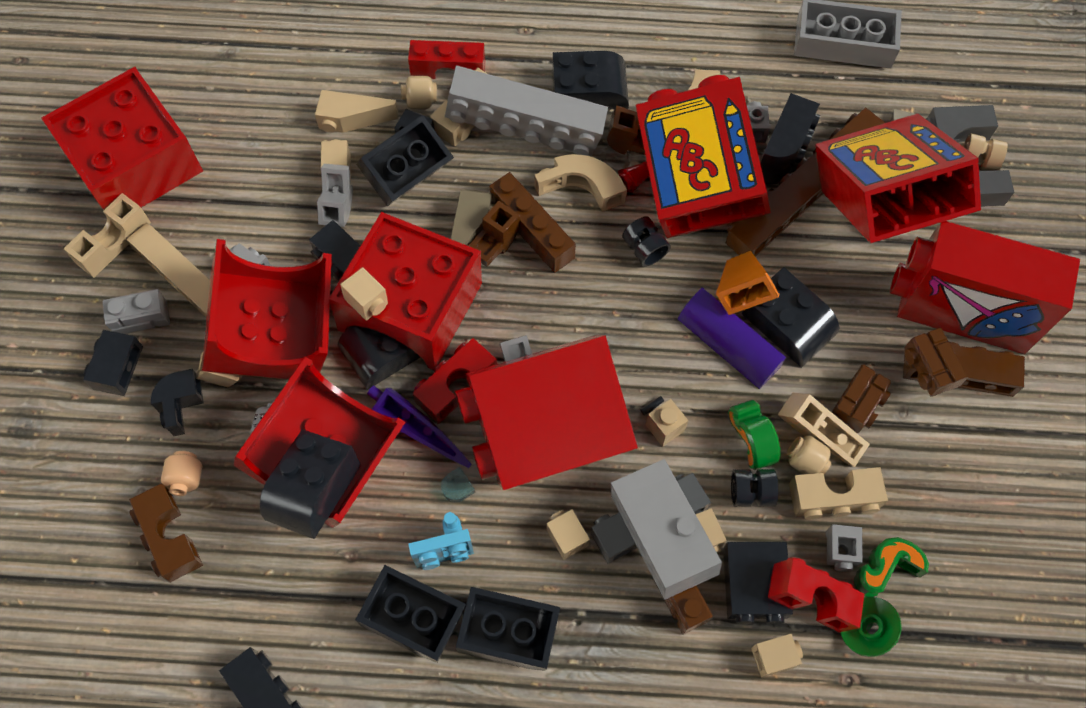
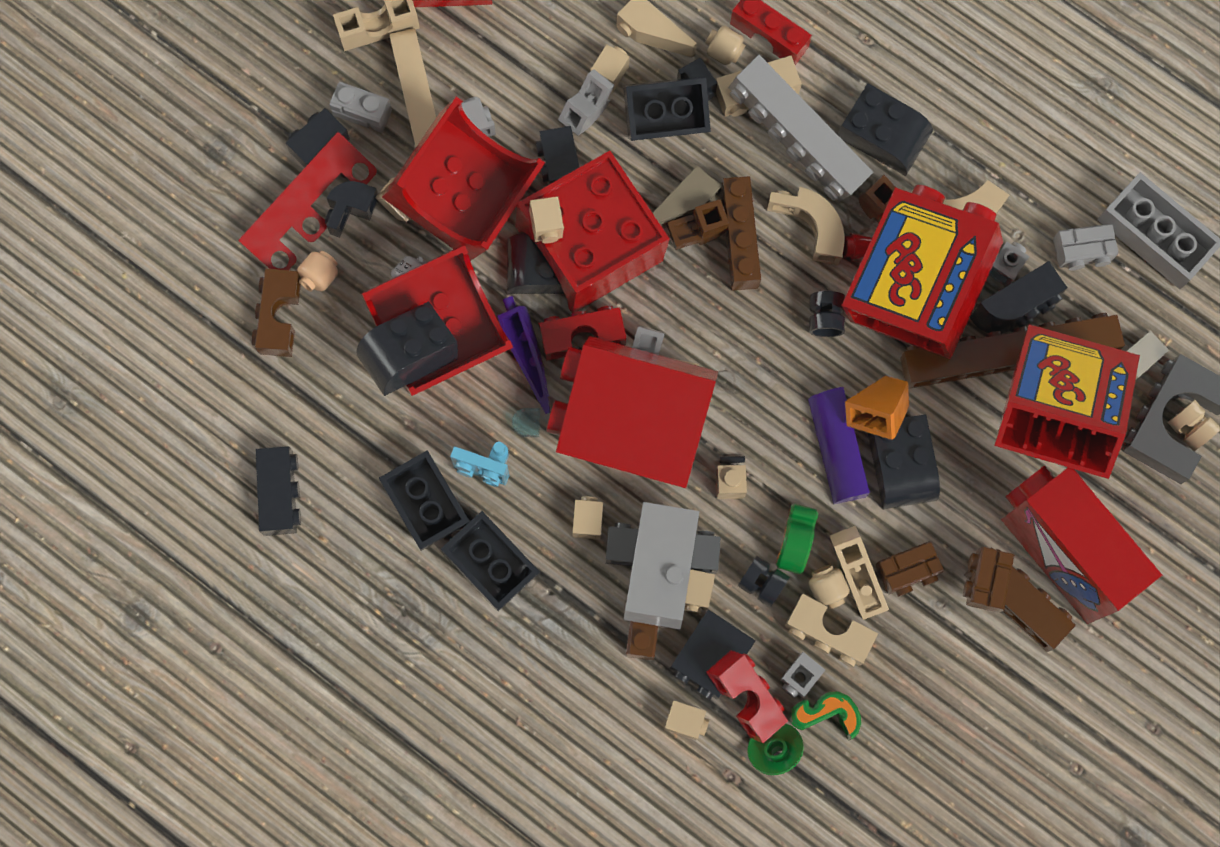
camera: 30 degrees right, 10 degrees up
(124, 425) = (296, 200): none -> red piece
(802, 75) = (1085, 246): none -> light grey brick

